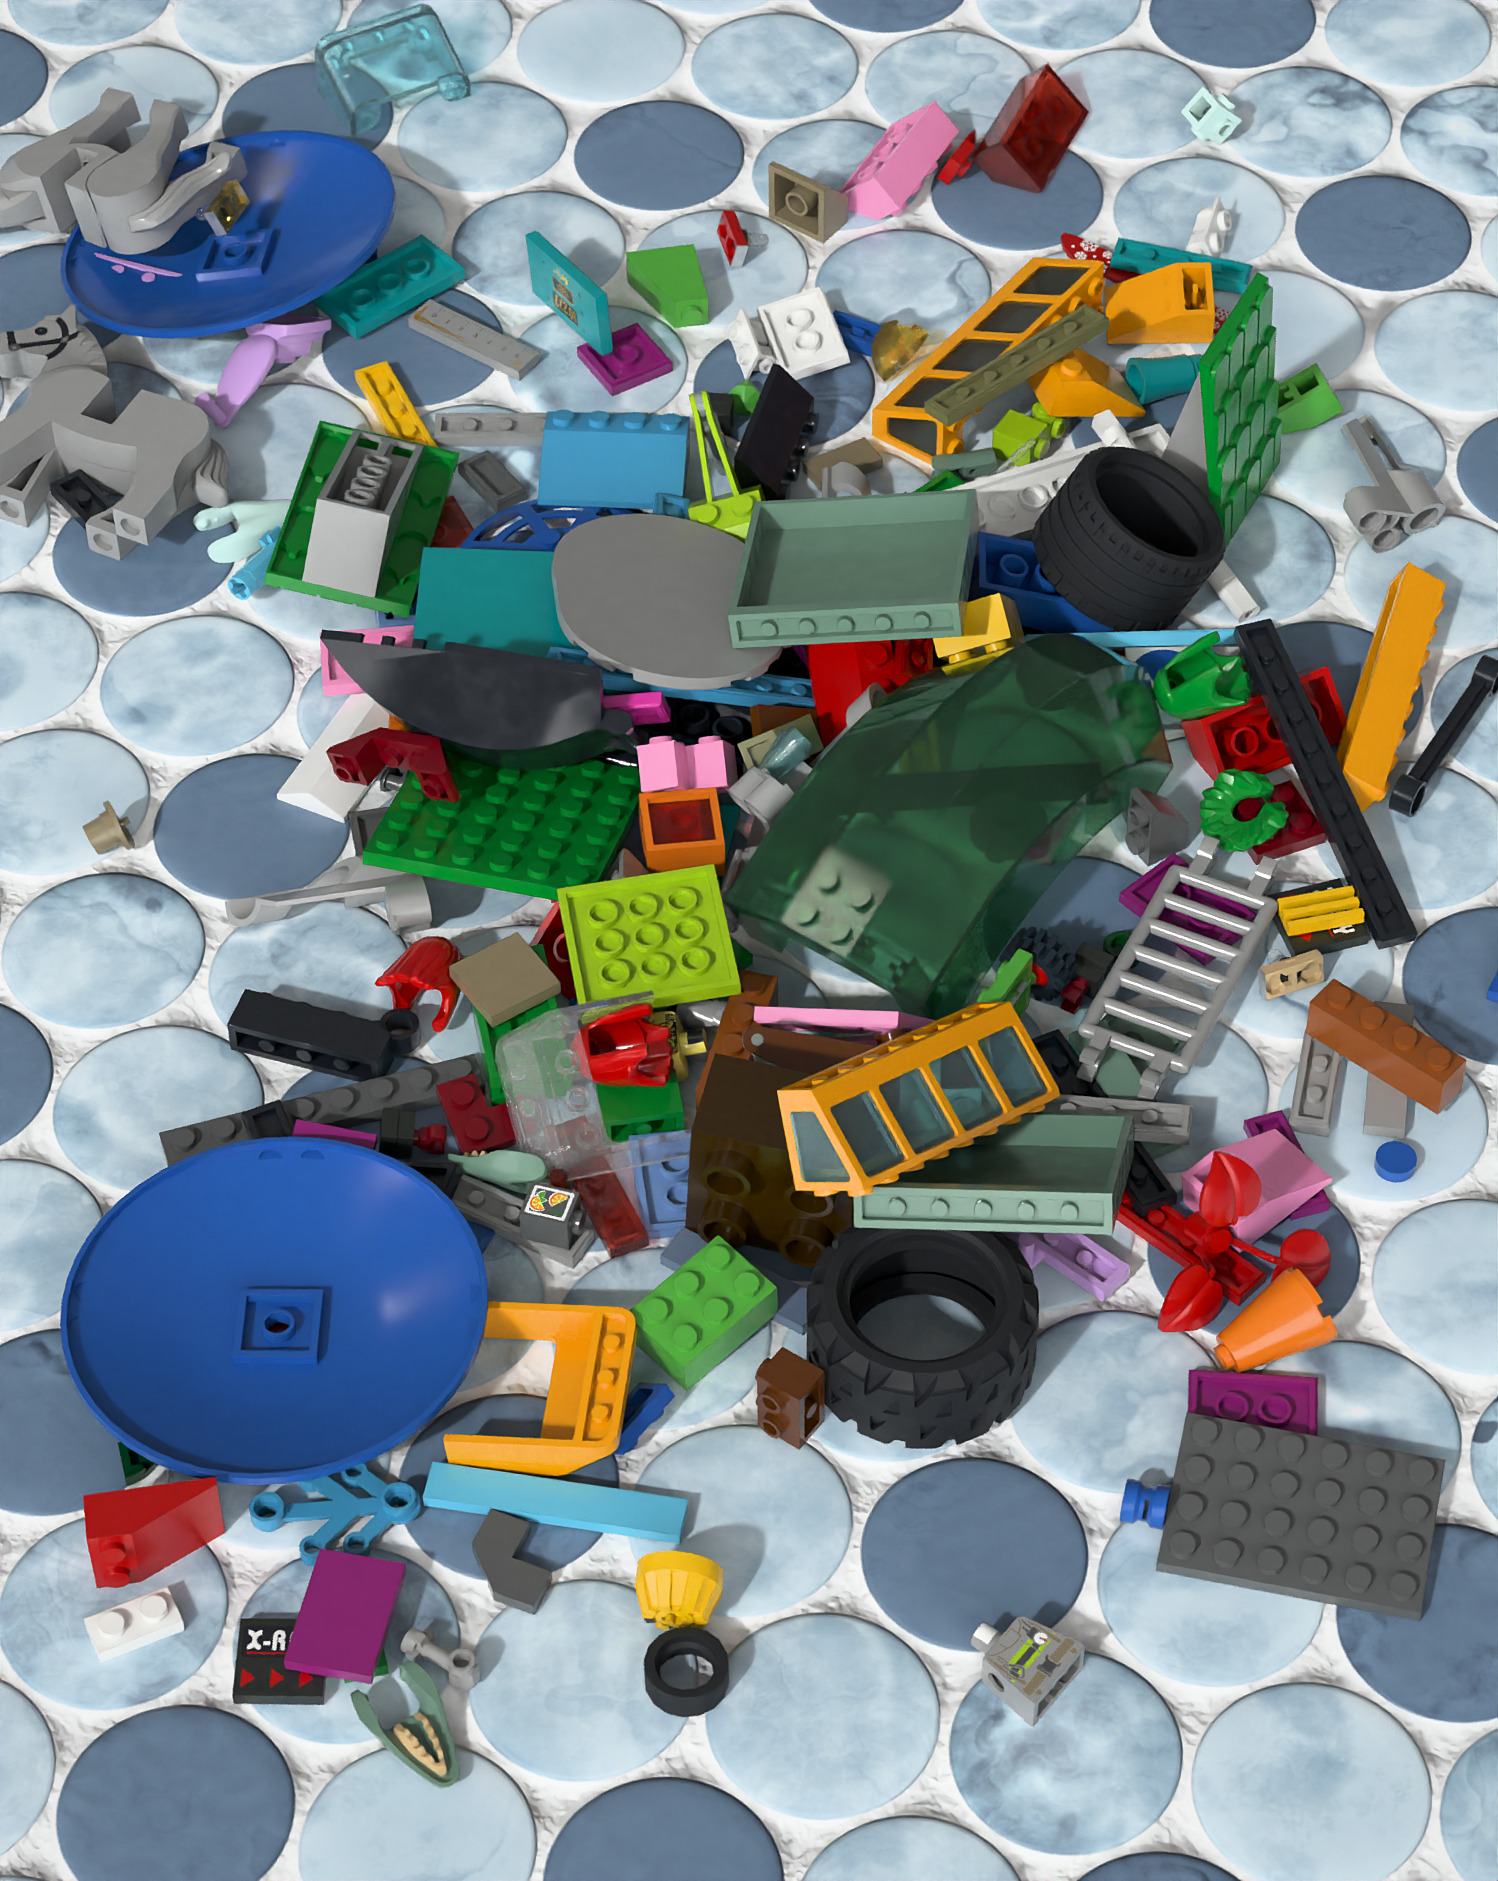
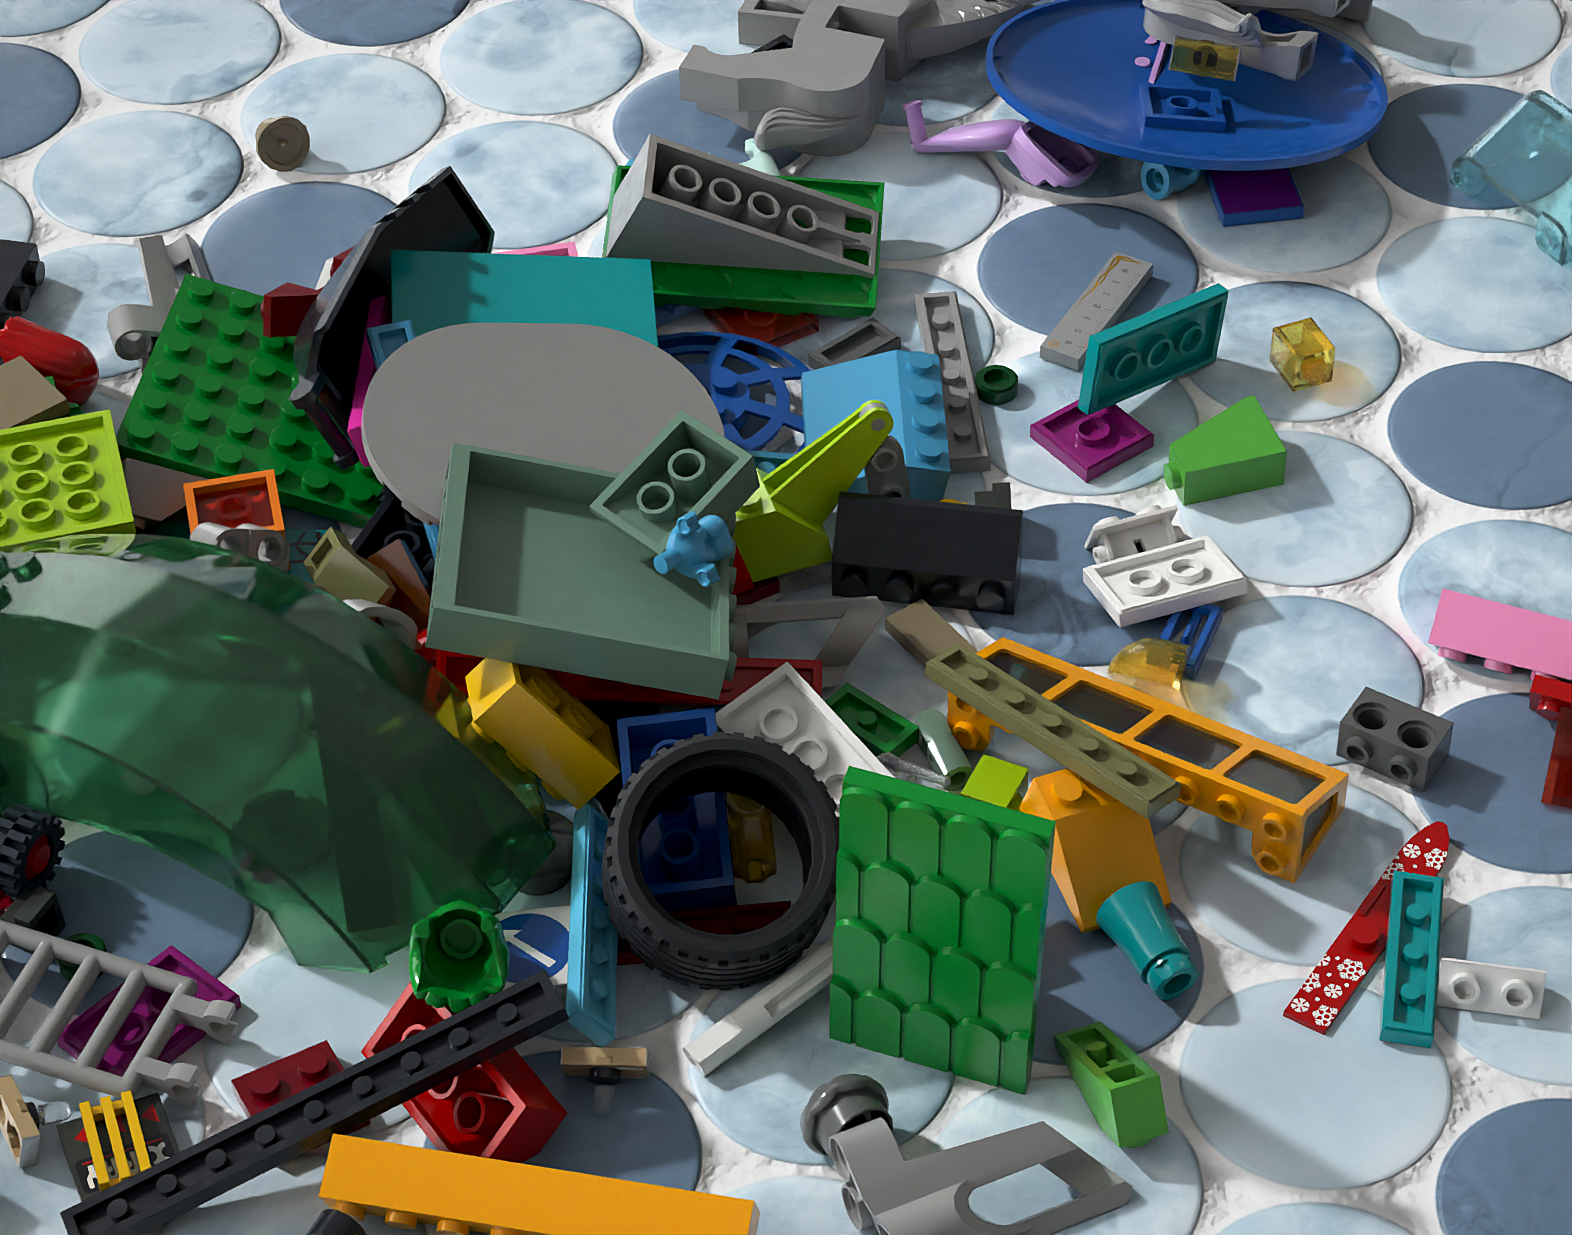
camera: 85 degrees right, 5 degrees down
(390, 286) = (1168, 231): teal plate -> none
(392, 404) = (958, 266): yellow tile -> none
(551, 400) = (996, 384): none -> dark green tile
(567, 229) = (1302, 354): none -> clear yellow brick
(673, 766) = (316, 496): bright pink brick -> none
(737, 240) = (1337, 505): piece -> none
(745, 397) = (1039, 539): bright green rock -> none
(780, 503) = (675, 474): none -> sand green slope
(786, 752) = (310, 561): clear light blue cone -> none
(805, 203) = (1416, 550): dark tan slope -> none
(846, 495) = (694, 546): none -> dark azure piece
(985, 241) = (1394, 739): none -> dark grey brick
(1154, 827) = (263, 956): dark grey slope -> none
(1162, 306) = (1294, 934): light orange slope -> none
(1218, 808) = (258, 1053): green piece -> none
(1322, 528) = (841, 1106): none -> dark grey piece

